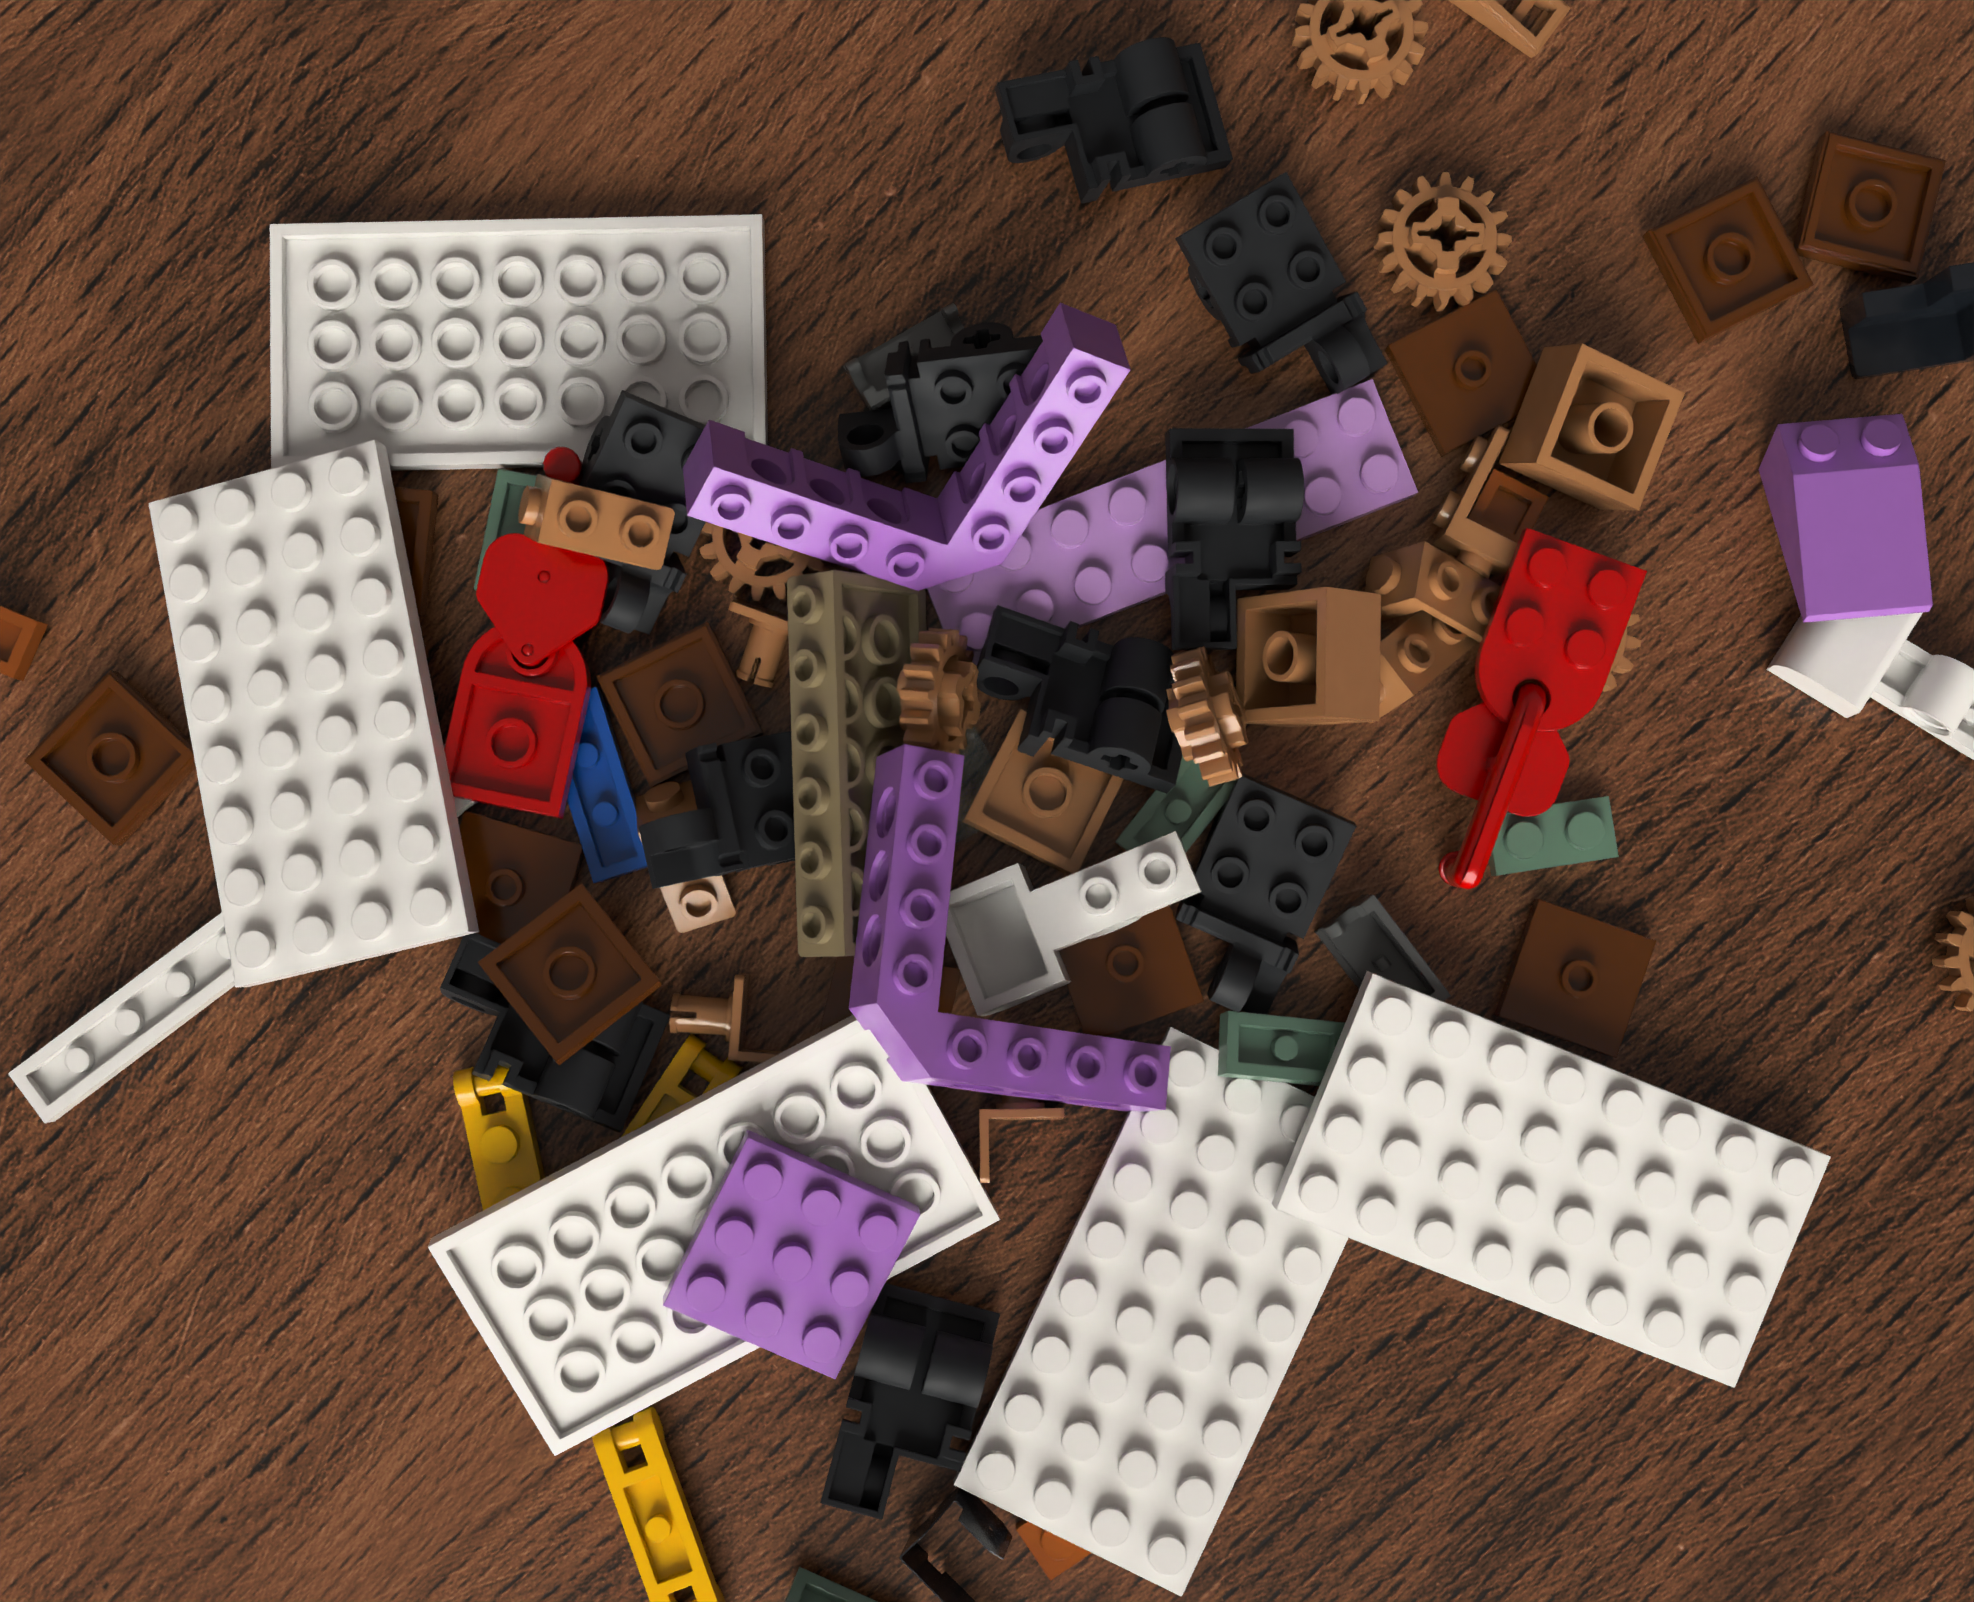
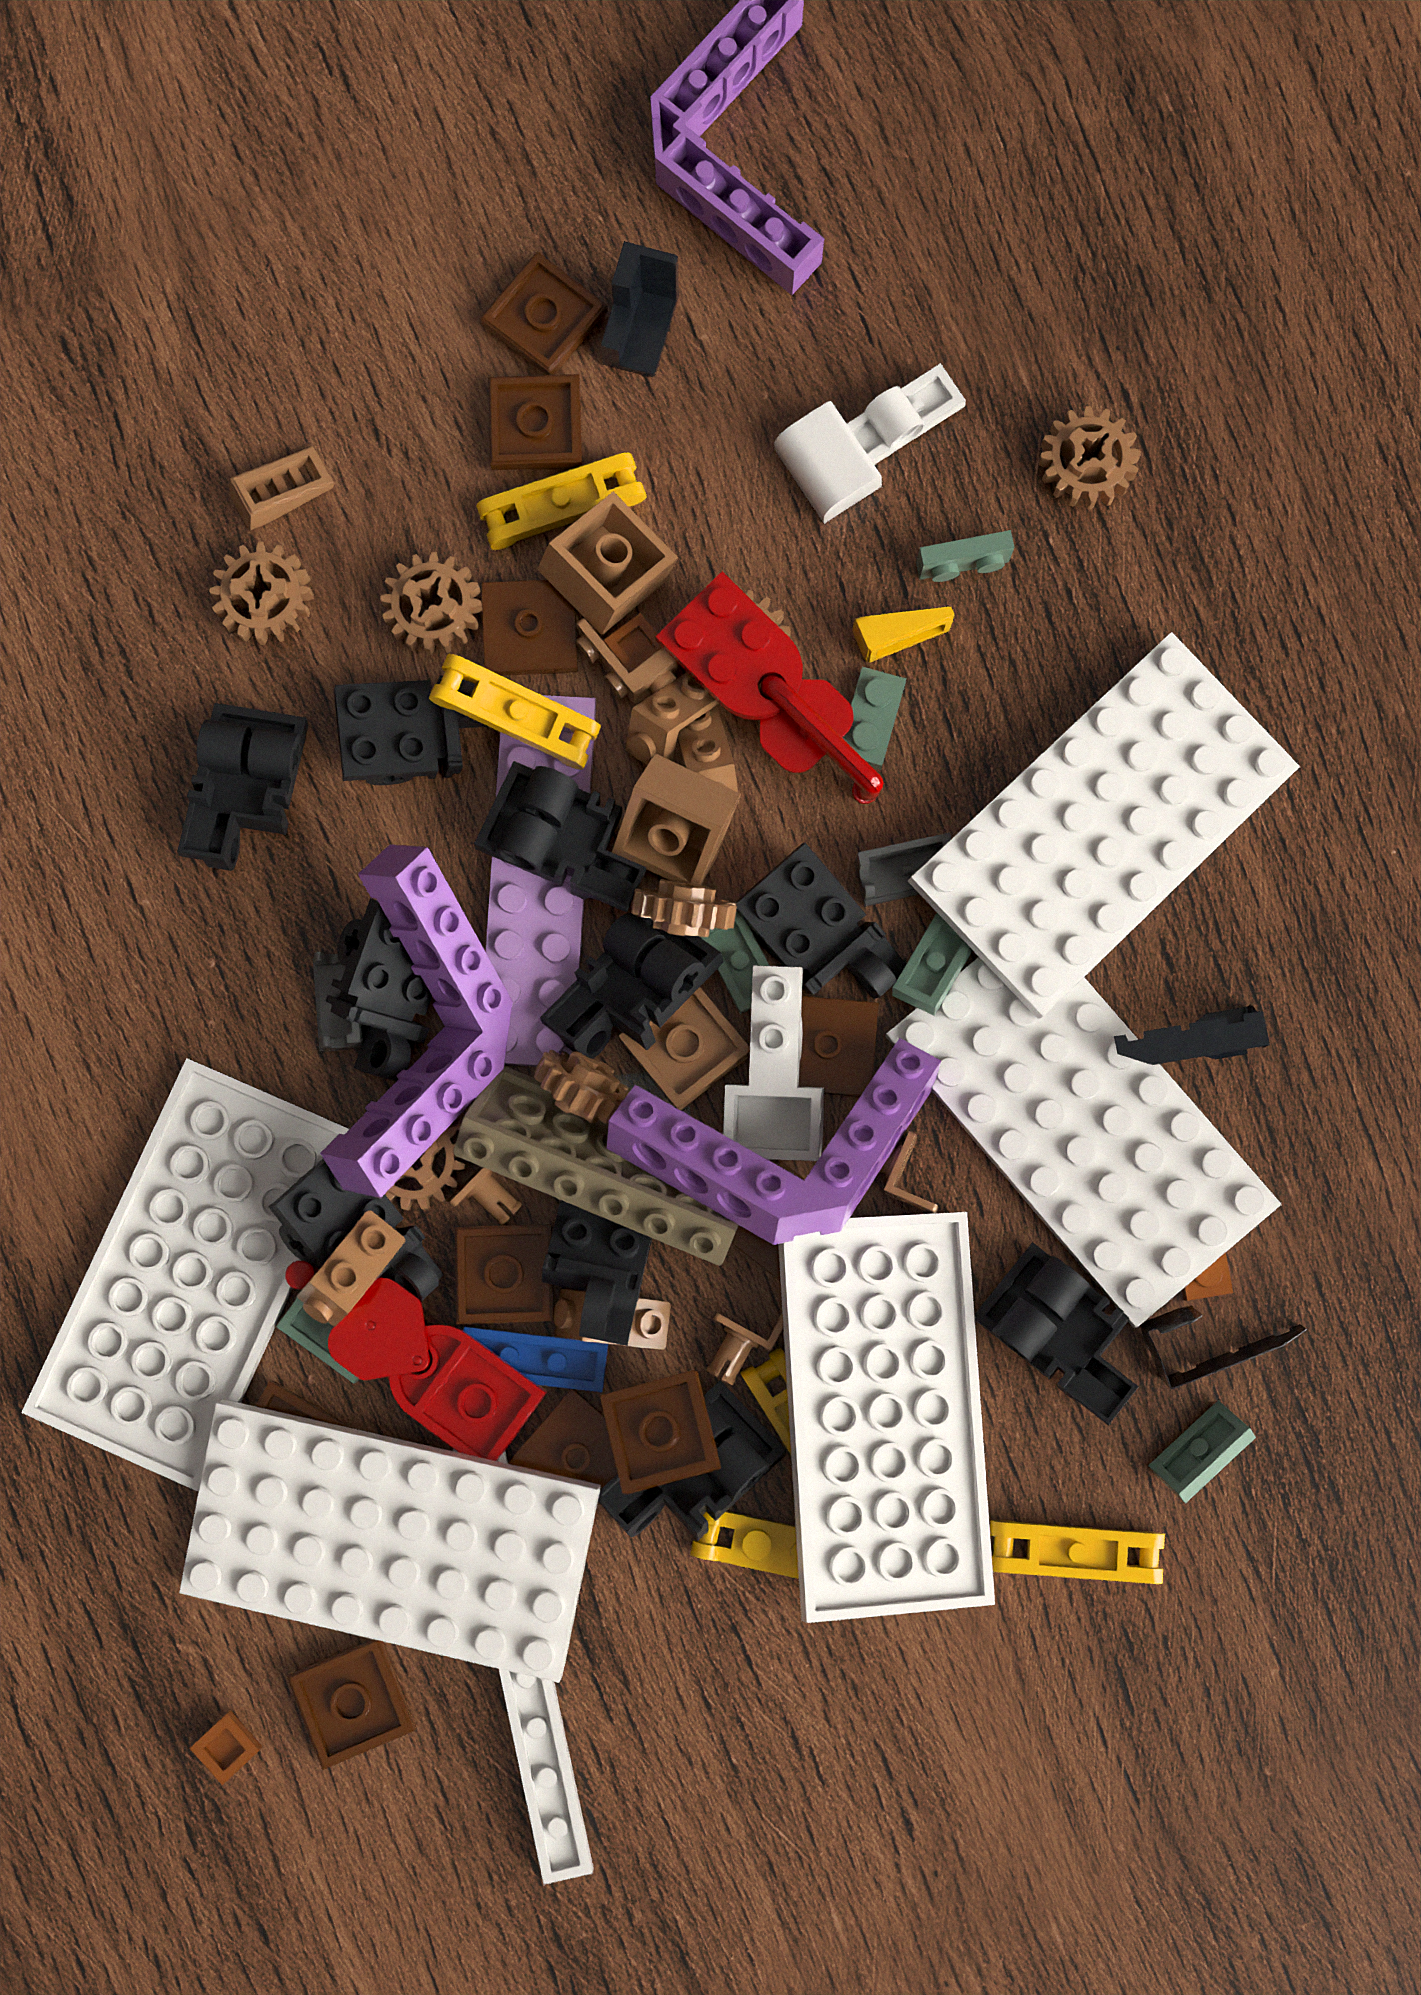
camera: 65 degrees left, 5 degrees down
(791, 1255) = (926, 1367): medium lavender plate -> none
(1348, 1423) = (1213, 1036): none -> black piece
(1354, 401) = (515, 711): none -> yellow plate
(1575, 978) = (975, 745): reddish brown plate -> none
(1643, 333) = (558, 499): none -> yellow plate
(1669, 815) = (893, 632): none -> yellow slope
(1820, 878) = (982, 553): none -> sand green plate
(1849, 516) = (747, 423): medium lavender slope -> none

